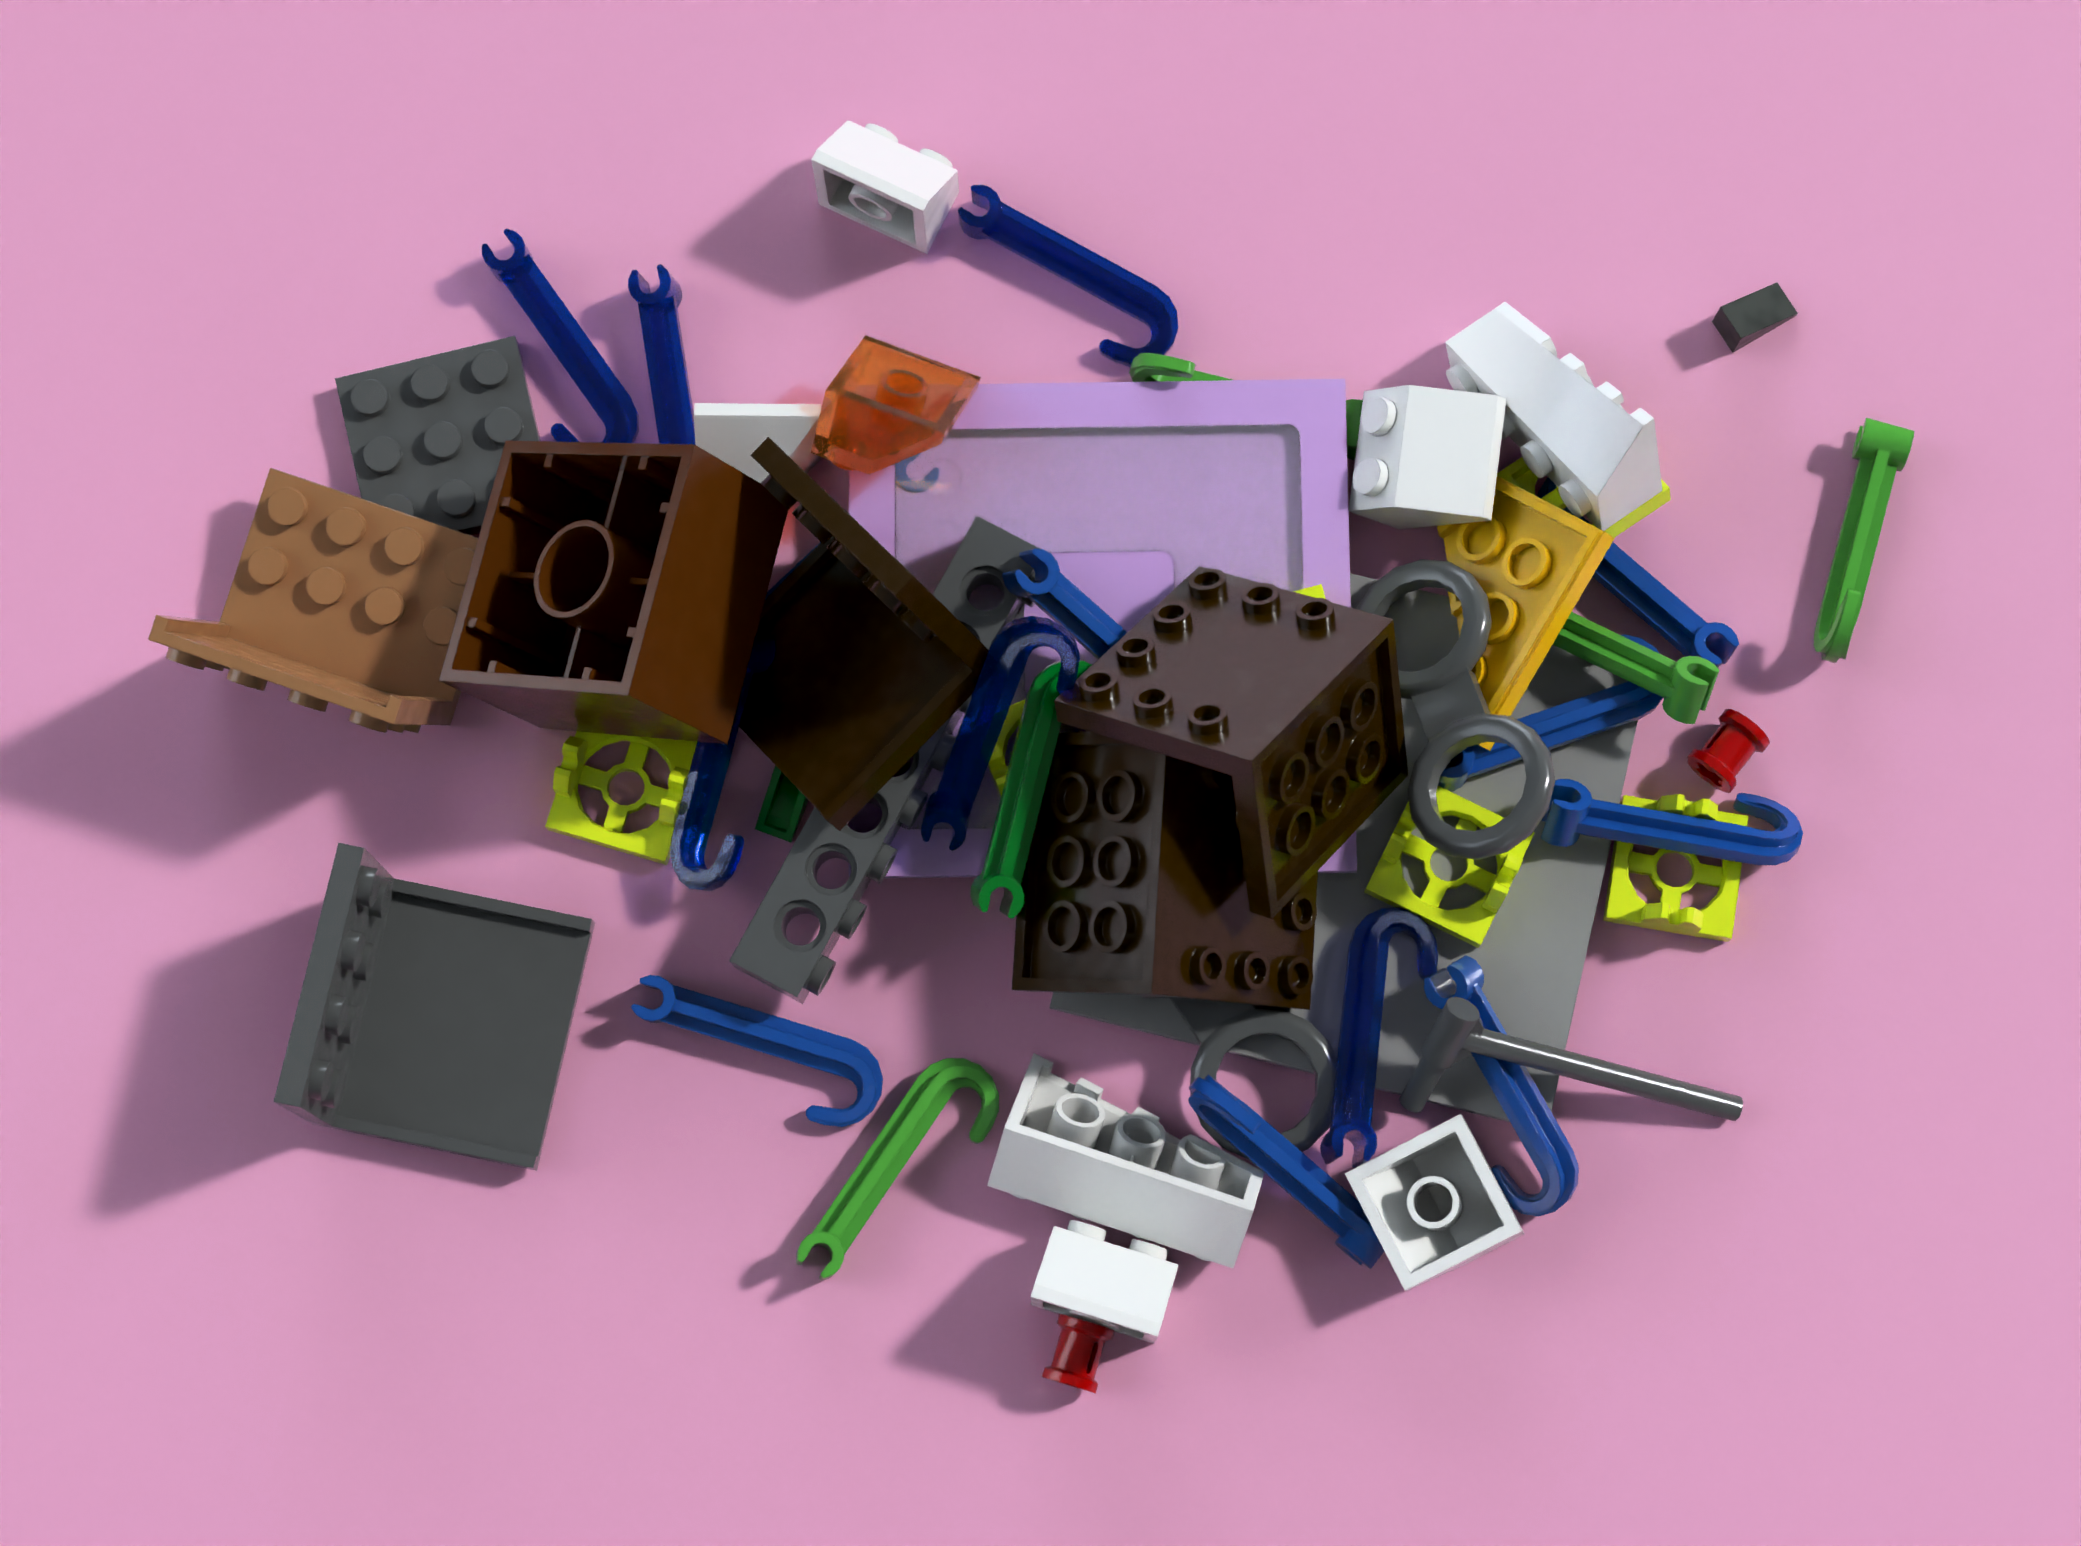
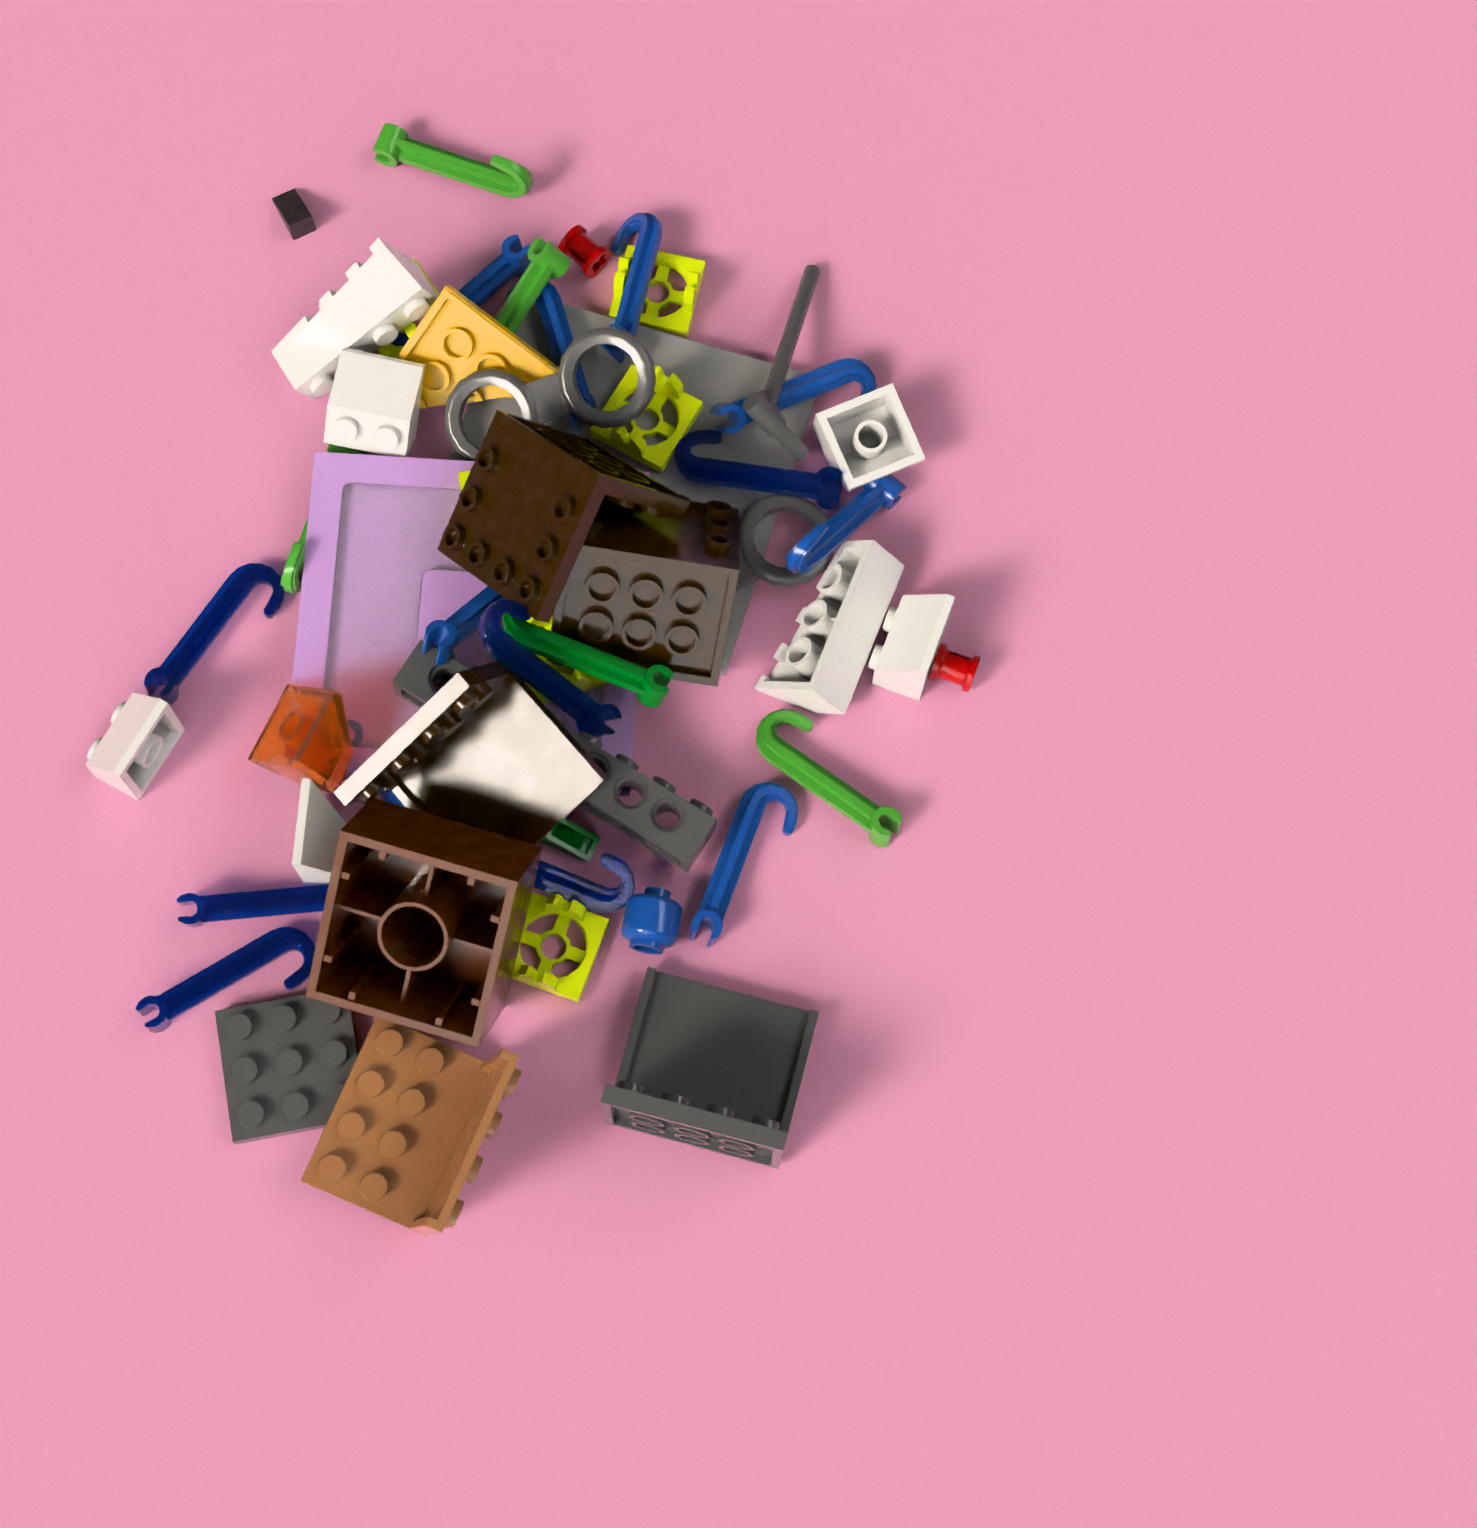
camera: 90 degrees left, 5 degrees down
(658, 919) = (651, 921): none -> blue head

